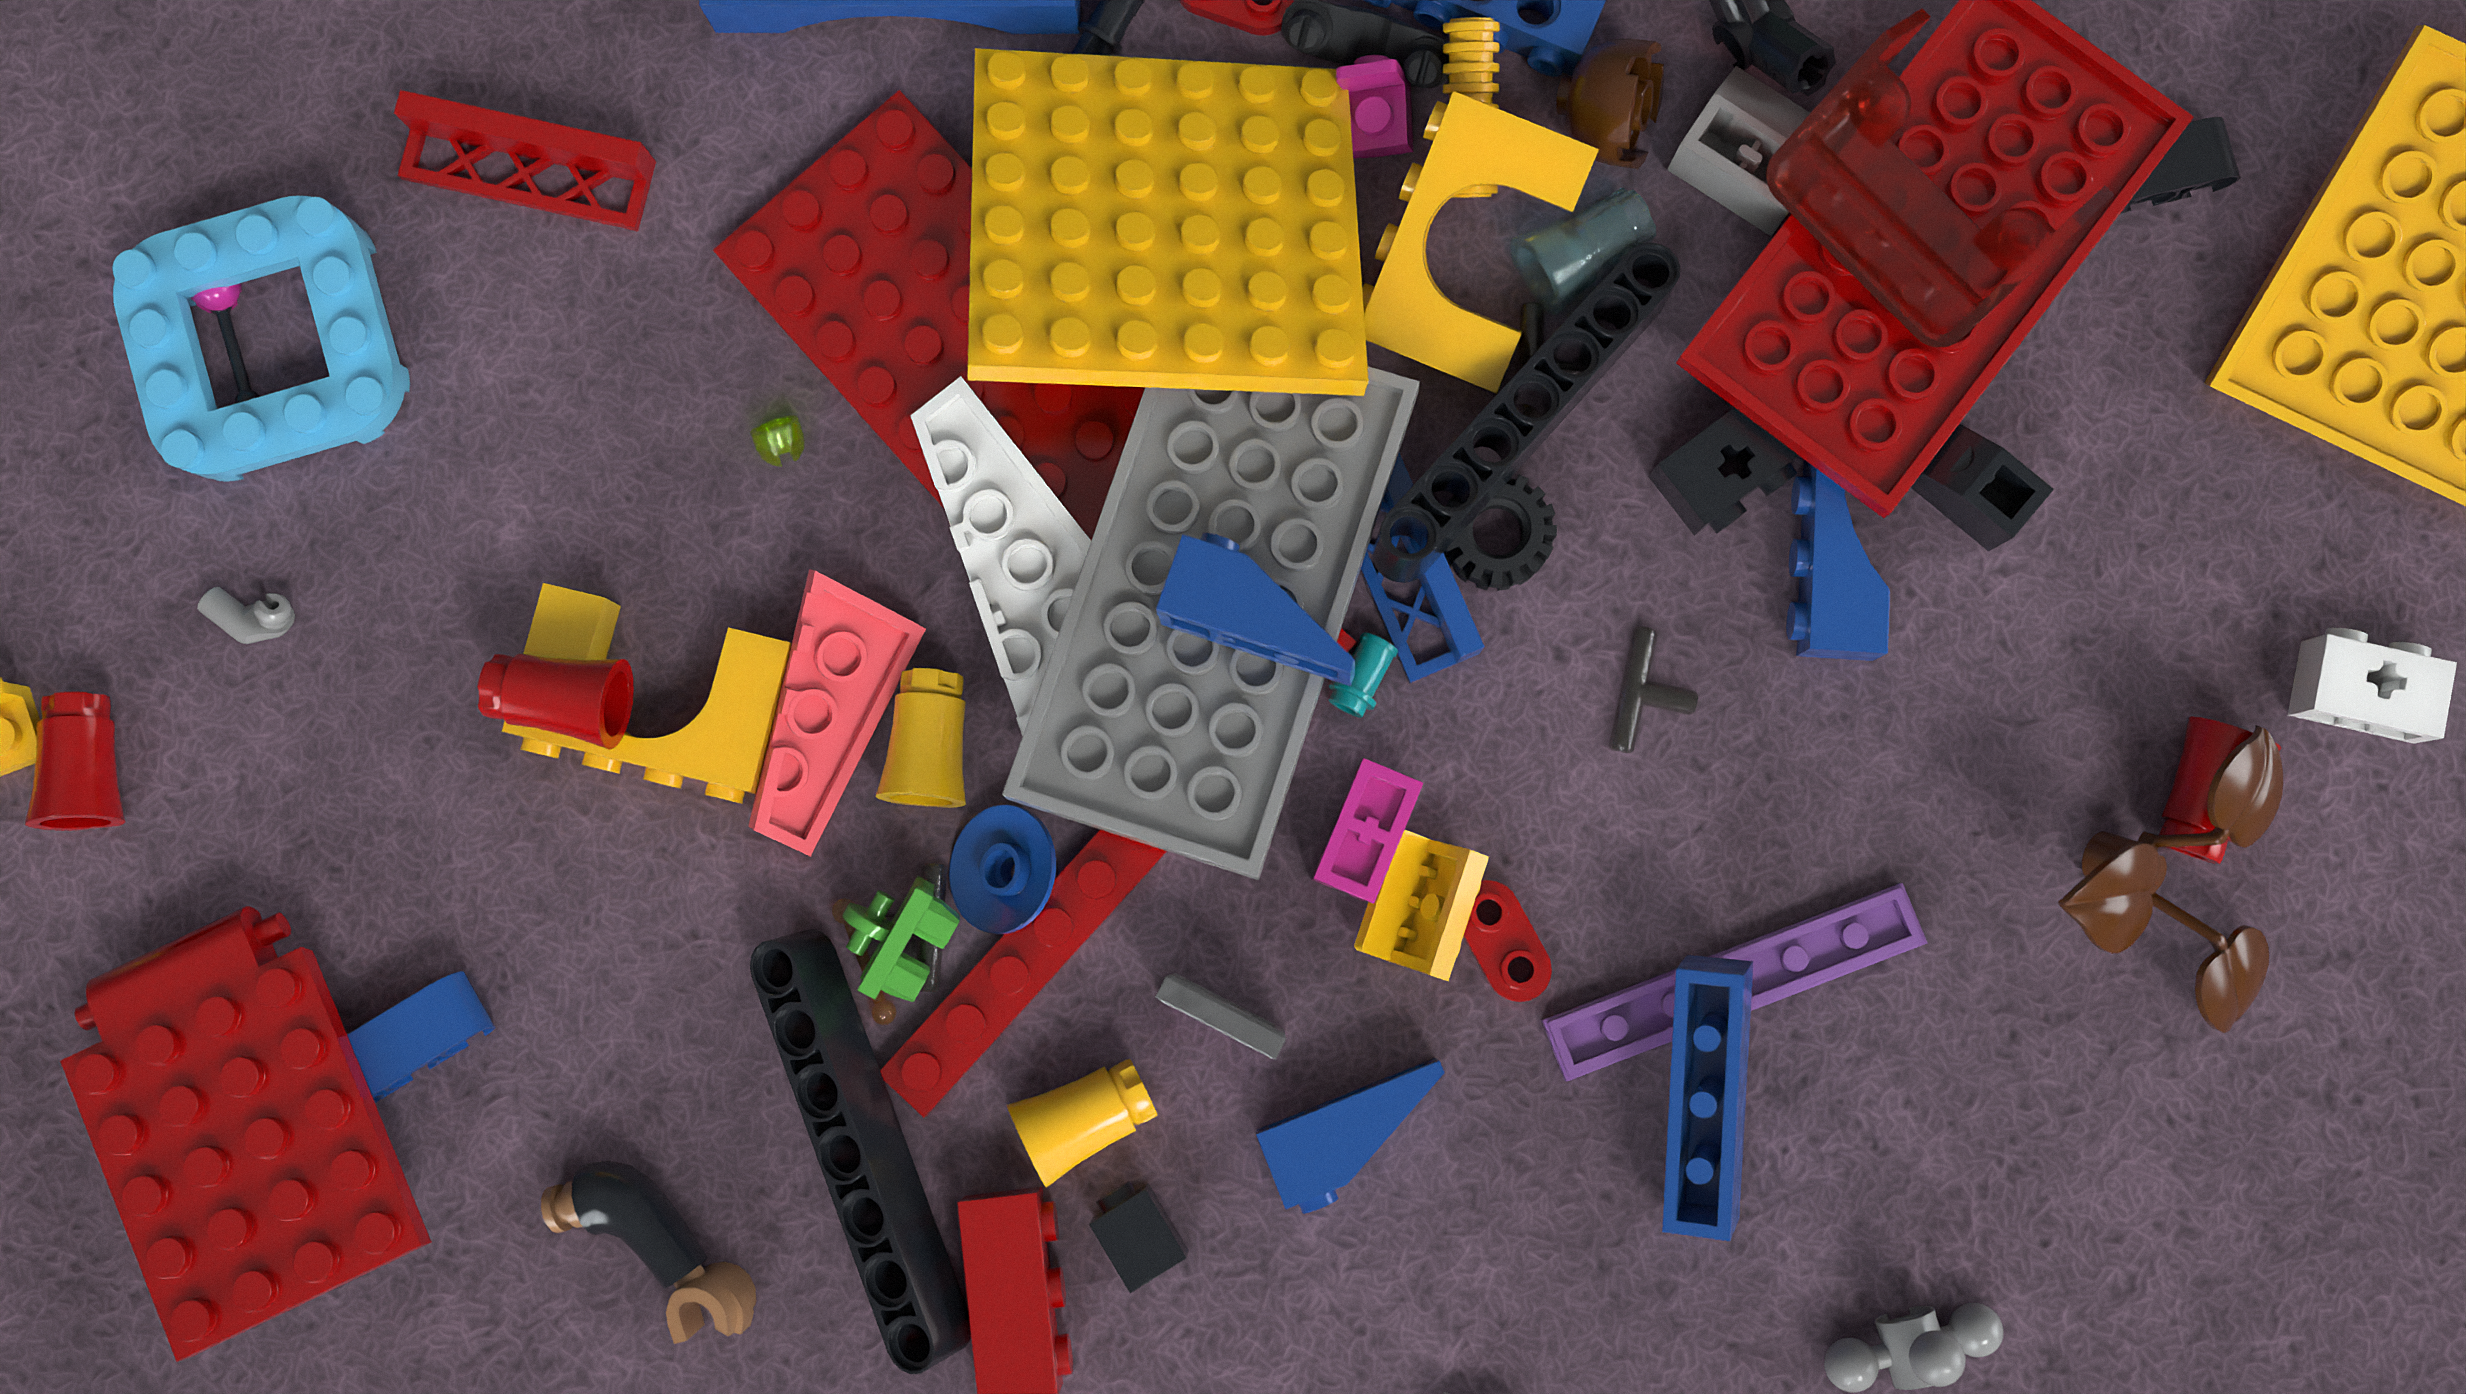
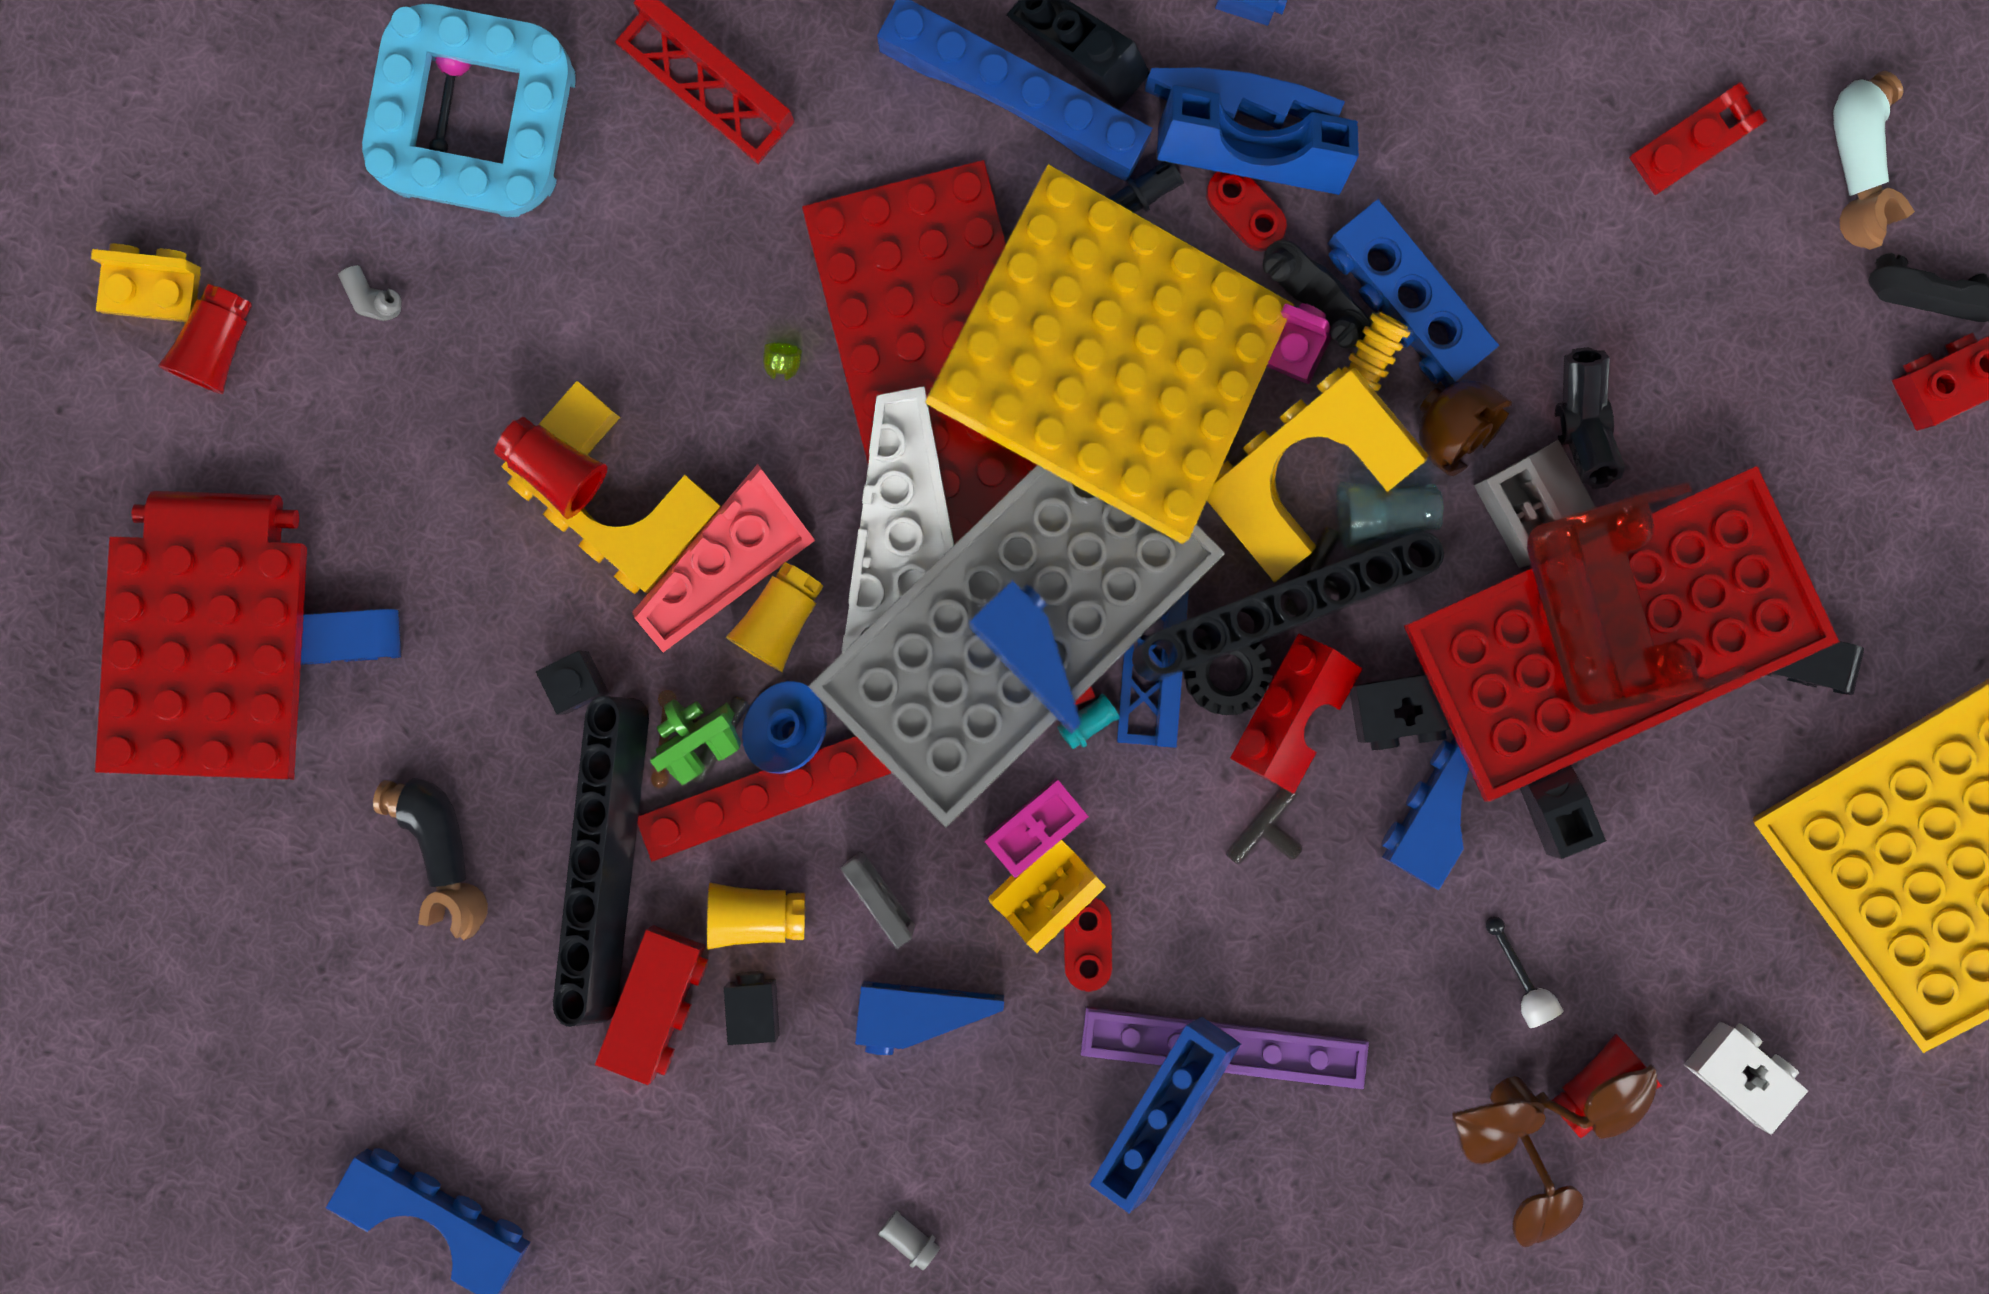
camera: 20 degrees right, 5 degrees up
(715, 948) = (572, 682): none -> black brick
(1595, 577) = (1275, 735): none -> red arch
(2076, 732) = (1537, 1004): none -> hinge

